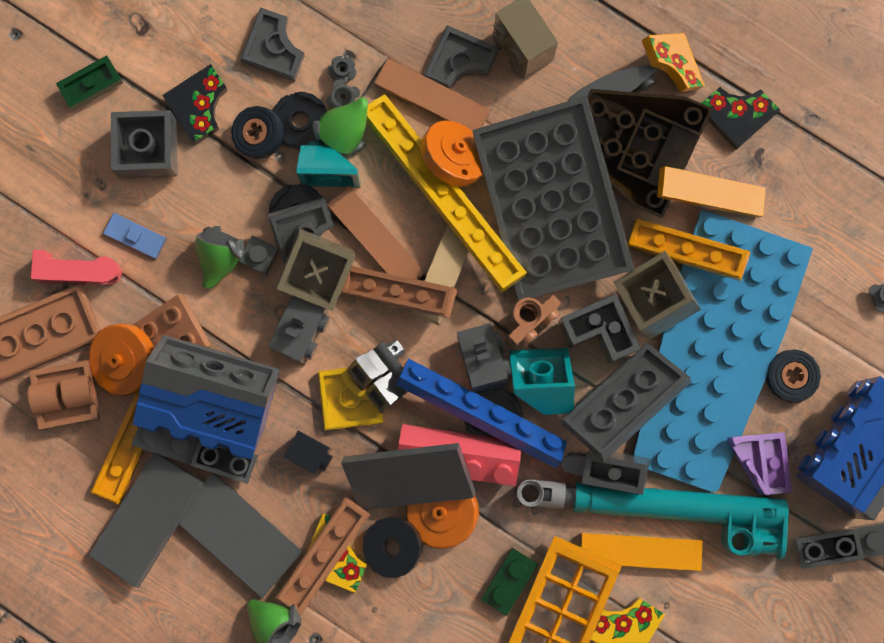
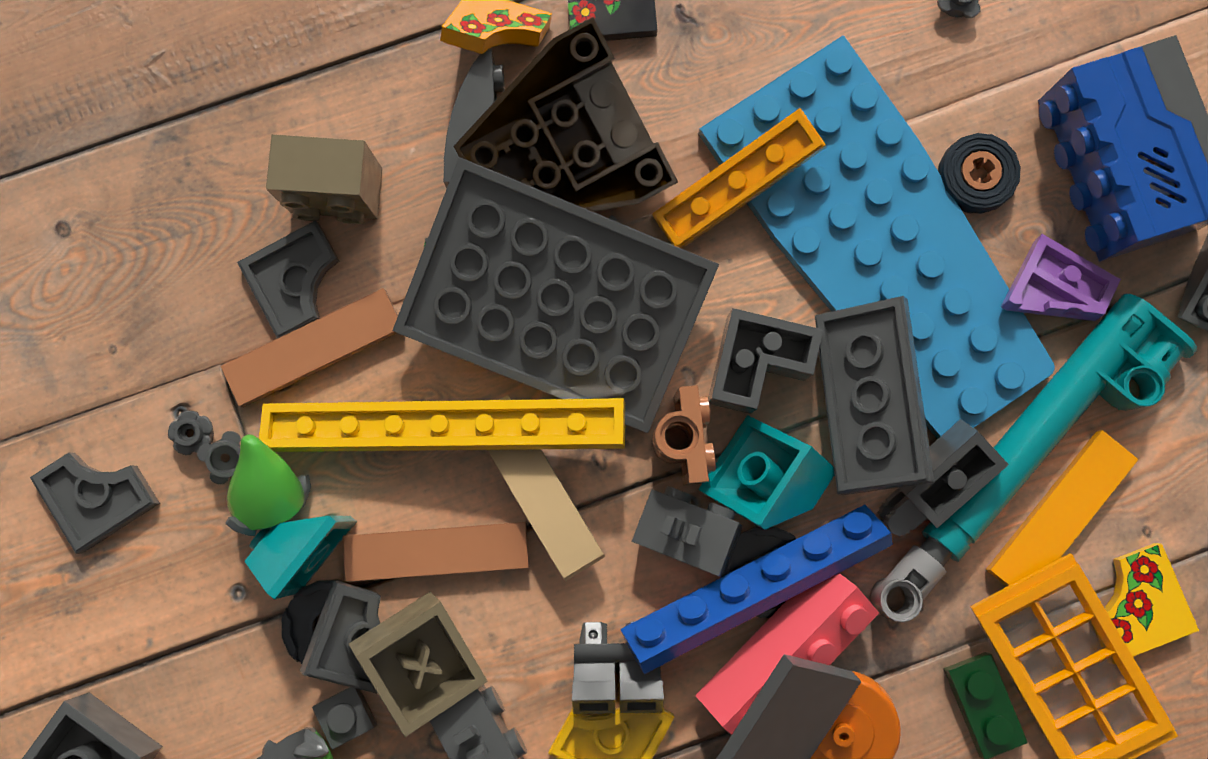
camera: 50 degrees left, 0 degrees up
(196, 102) = (87, 651): black tile -> none
(269, 139) = (165, 609): black bush -> none
(296, 104) = (187, 540): black tile -> none
(399, 292) = (526, 575): nougat tile -> none
(451, 153) = (401, 378): orange wheel -> none
(657, 295) = (769, 260): dark tan brick -> none
(711, 192) = (688, 101): light orange tile -> none

